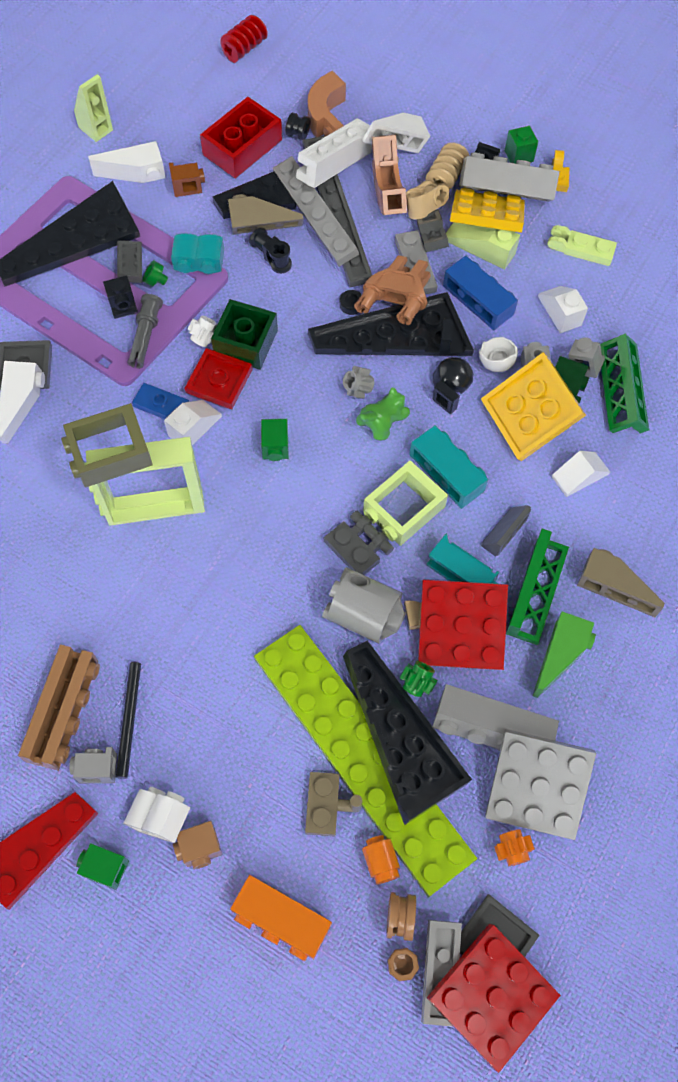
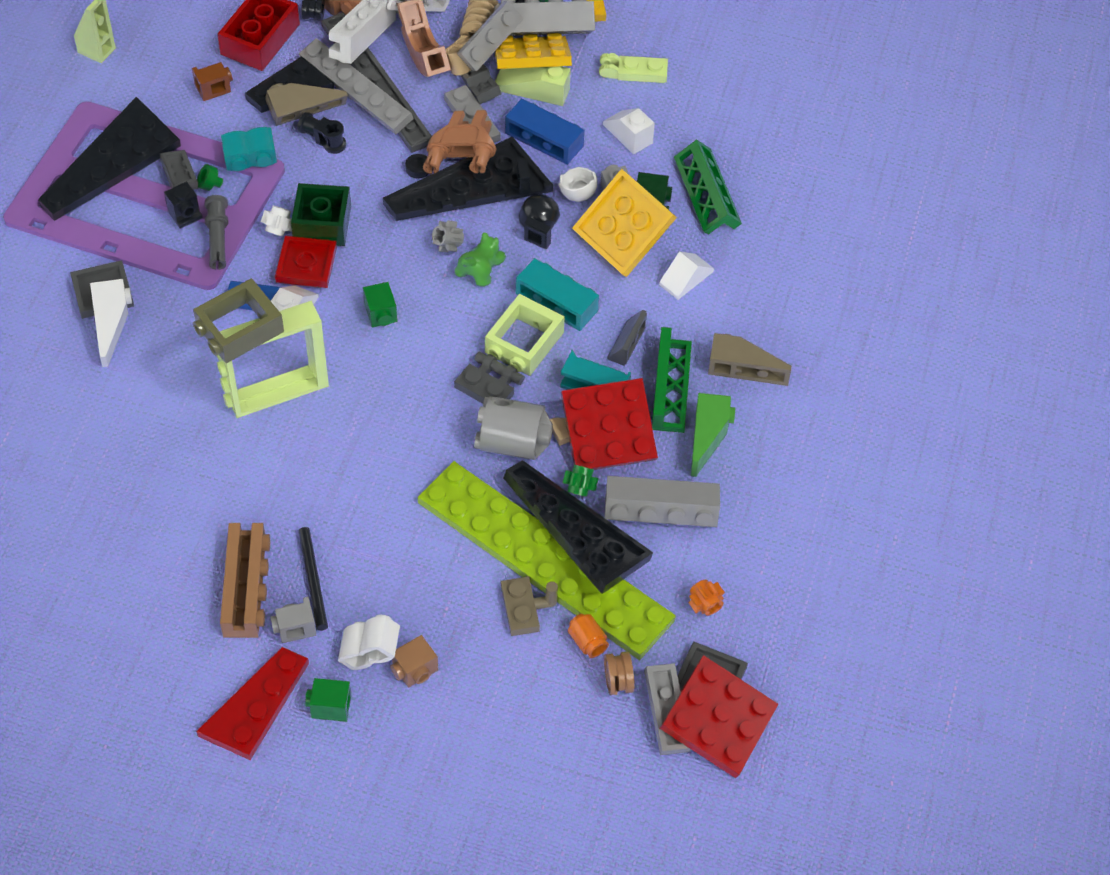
camera: 15 degrees left, 10 degrees down
(134, 163) = (150, 77): white slope -> none
(280, 918) = (509, 701): orange brick -> none
(403, 964) = (631, 714): medium nougat tile -> none
(451, 186) = (490, 36): none -> light grey plate
(540, 784) = (716, 538): light grey plate -> none
(587, 350) = (665, 163): light grey brick -> none

